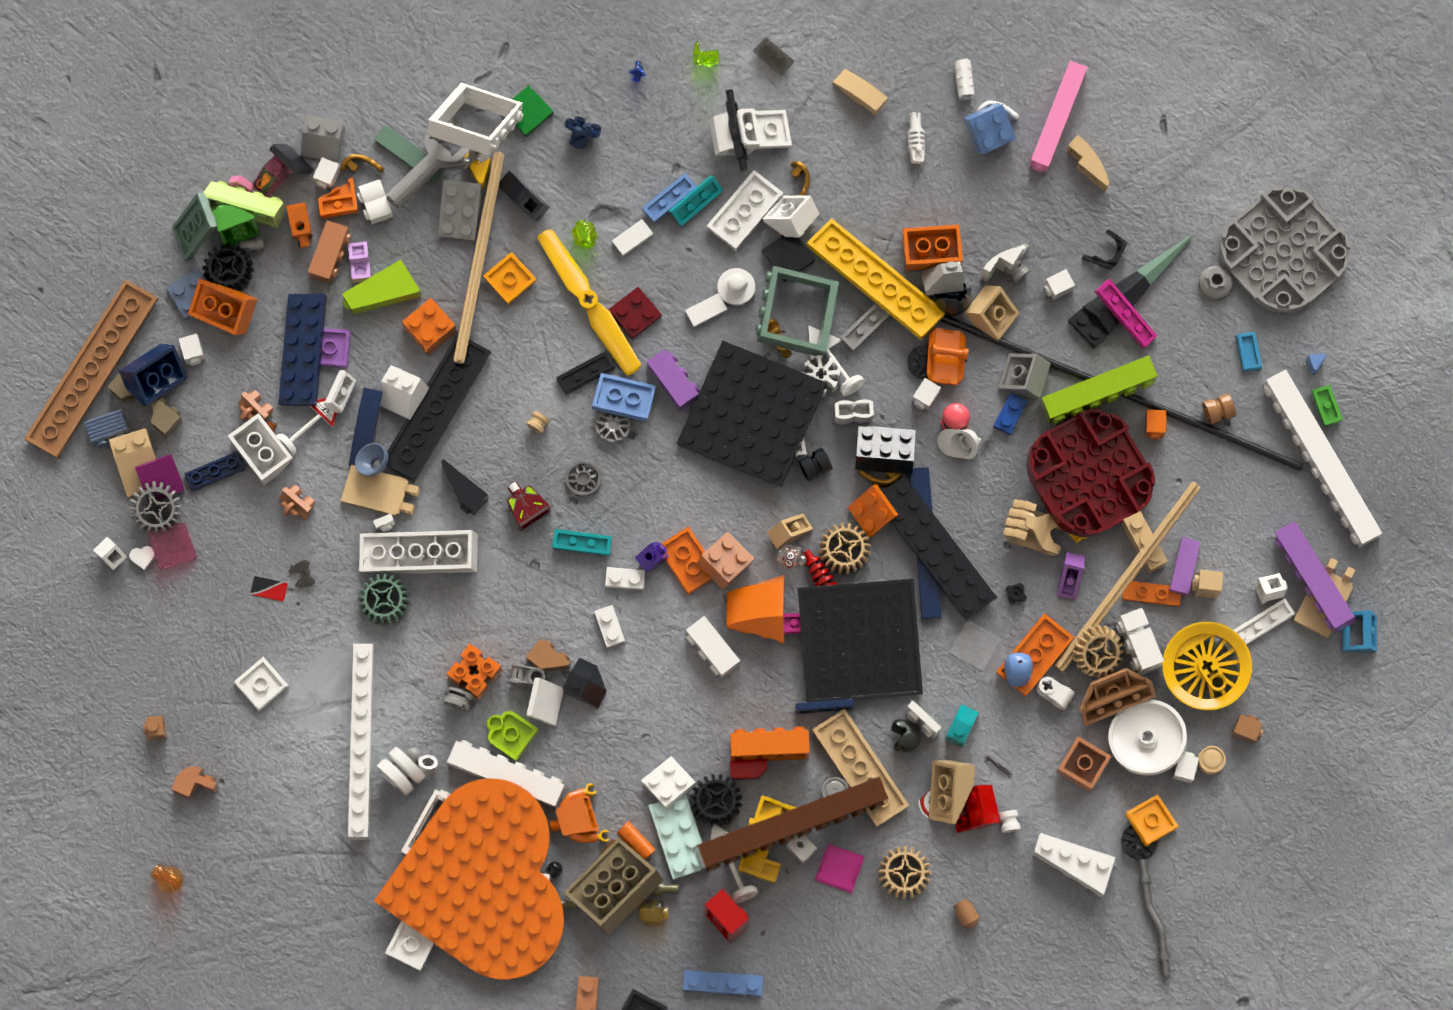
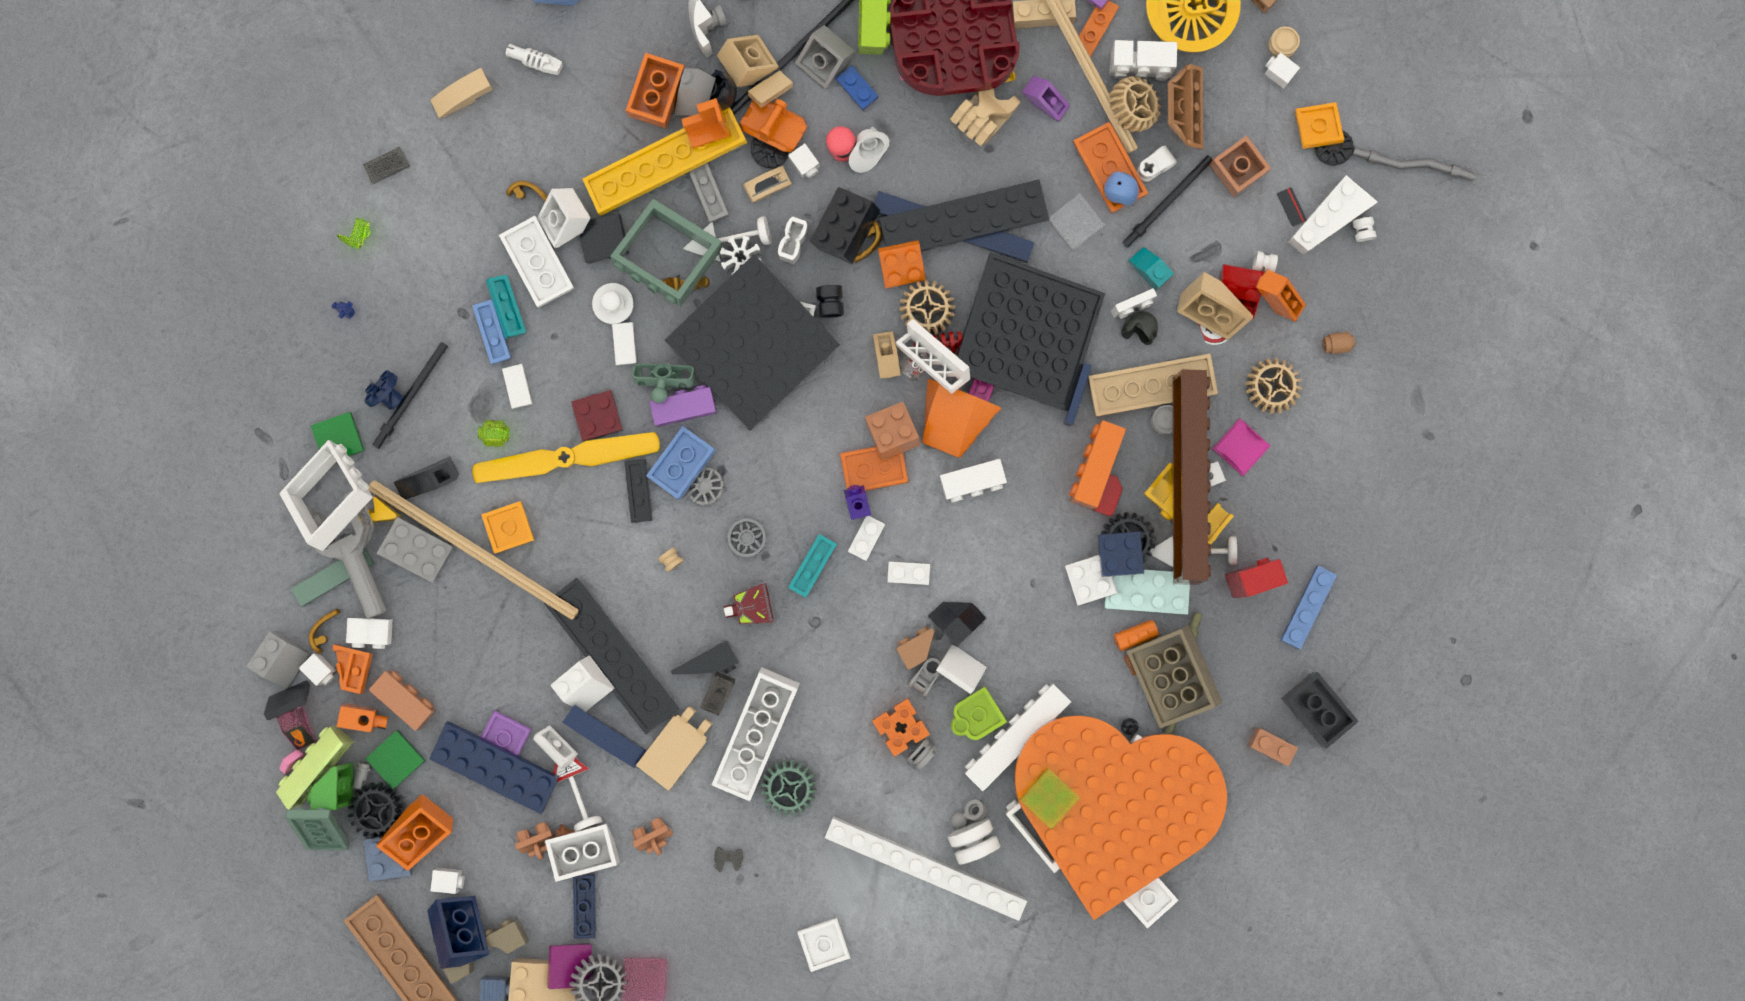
camera: 60 degrees left, 10 degrees up
(269, 588) = (728, 898): sticker -> none
(276, 267) = (395, 759): none -> green tile
(359, 261) = (426, 672): lavender slope -> none
(366, 458) = (636, 748): sand blue piece -> none
(382, 289) = (465, 661): lime slope -> none
(384, 523) = (711, 756): white plate -> none
(429, 326) = (524, 629): orange brick -> none
(440, 506) = (717, 693): none -> clear smoke plate
(463, 816) = (1049, 798): none -> clear neon green plate
(551, 147) = (387, 428): none -> black bar
(577, 817) = (1090, 683): orange torso -> none
(653, 913) = (1214, 647): clear yellow head -> none
(689, 353) = (663, 378): none -> sand green piece
(700, 795) = (1120, 554): none -> dark blue plate
(745, 130) = (455, 223): white piece -> none
(805, 574) = (939, 352): none -> white fence
(893, 371) = (766, 184): none -> tan slope
(919, 299) = (707, 125): none -> orange panel
(976, 341) = (770, 89): none -> tan tile
(983, 841) = (1281, 295): none -> orange brick
(991, 702) = (1140, 229): none -> black bar
(1019, 588) = (1045, 155): black plate -> none
(1071, 826) = (1291, 206): none -> black sticker
(1077, 896) = (1364, 229): none -> white wheel
(1148, 738) = (1240, 93): white dish -> none

